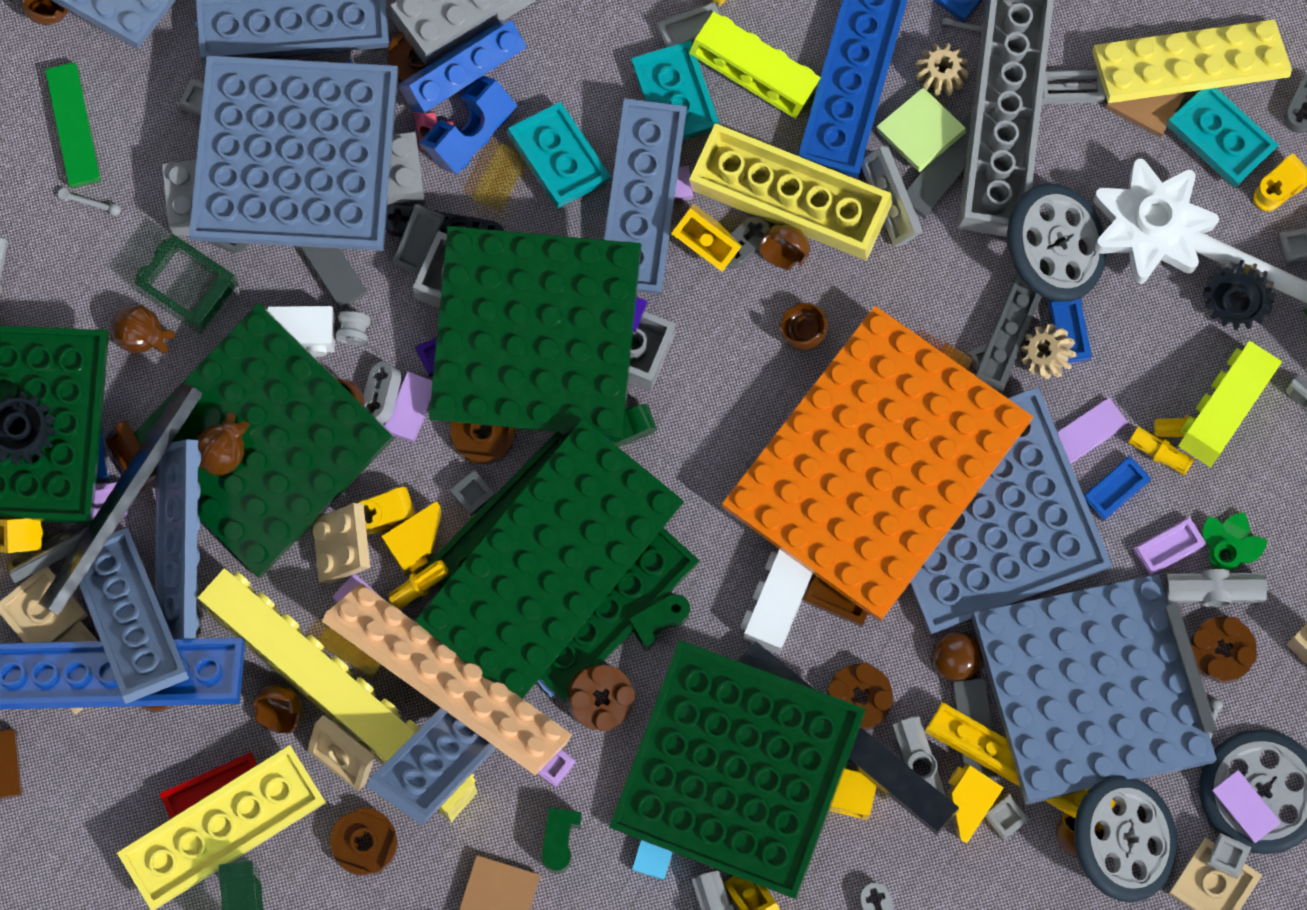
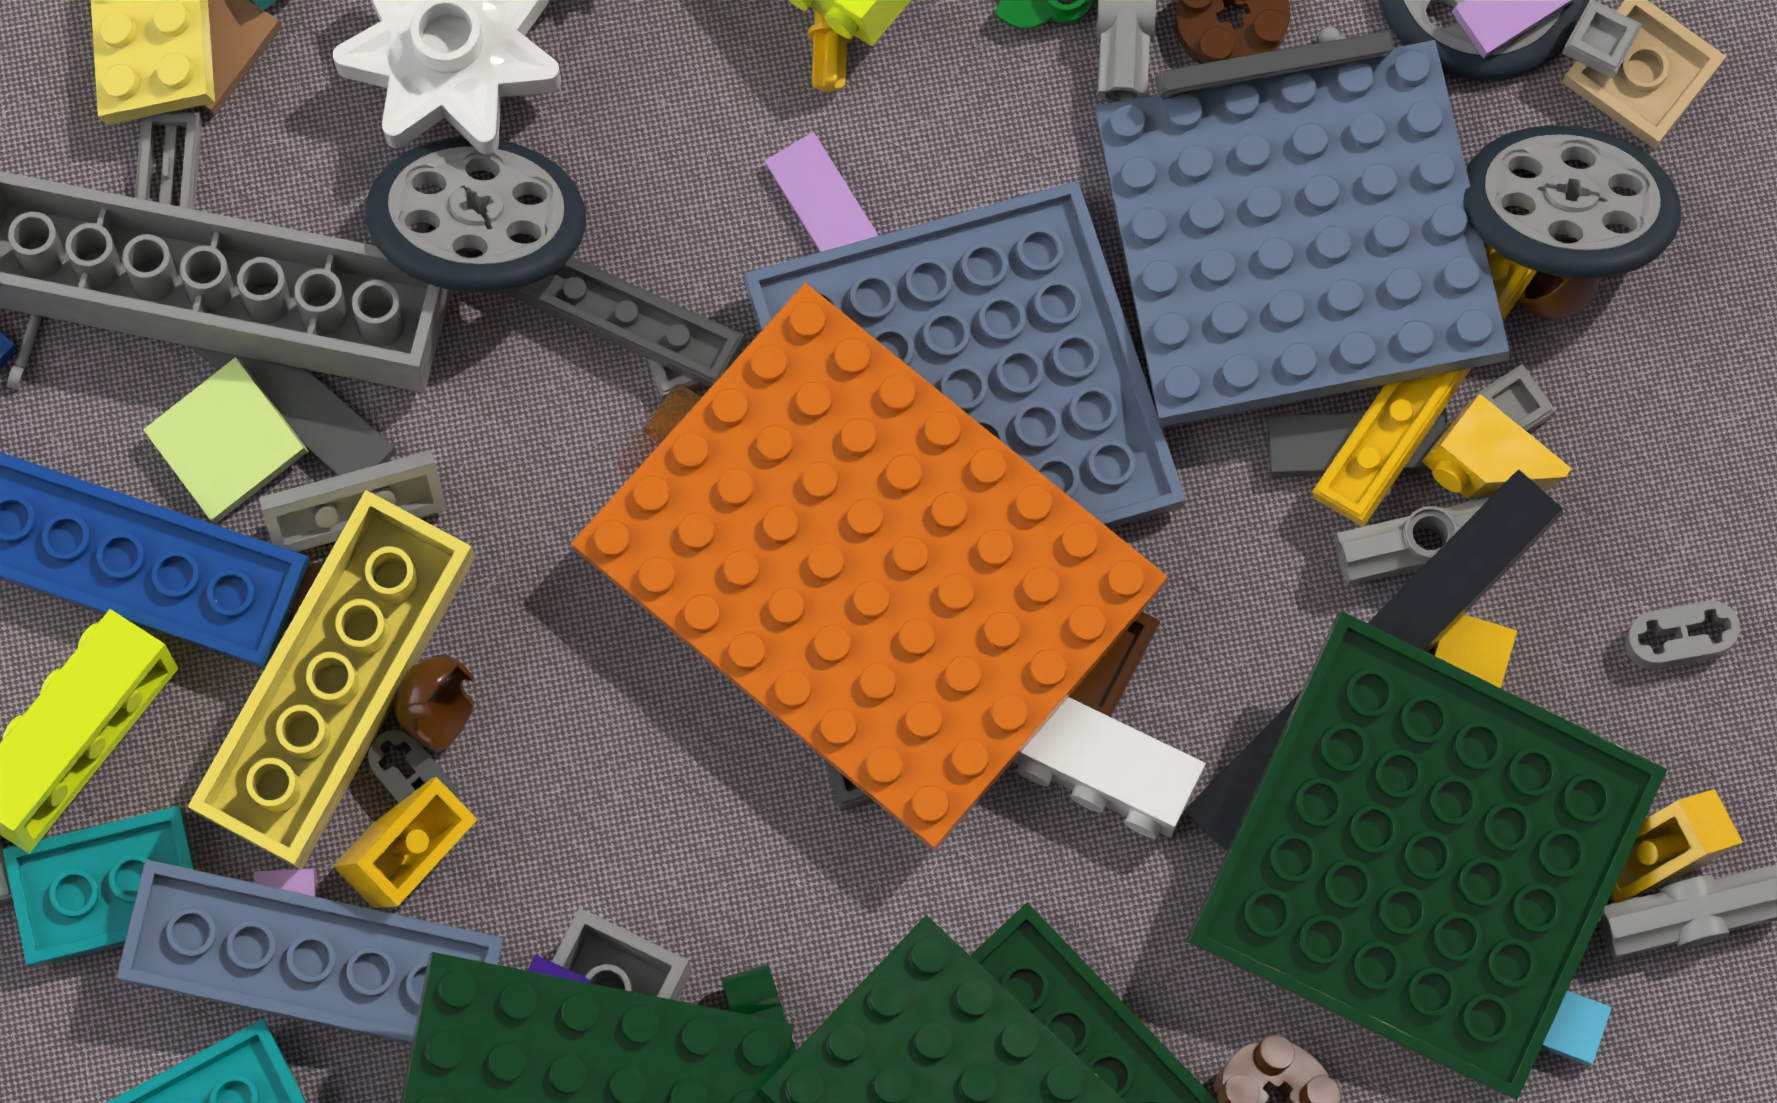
camera: 85 degrees left, 0 degrees up
(666, 613) = (1117, 960): dark green leg -> none
(803, 326) = (592, 680): reddish brown hair -> none
(871, 680) = (1257, 624): reddish brown plate -> none
(954, 73) = (104, 372): tan gear -> none
(957, 657) = (1225, 462): reddish brown hair -> none
(1039, 360) = (678, 231): tan gear -> none
(1071, 318) = (637, 216): blue tile -> none
(1116, 488) = (932, 163): blue tile -> none
(1161, 451) = (870, 81): yellow pin -> none
(1169, 546) = (1043, 86): lavender tile -> none

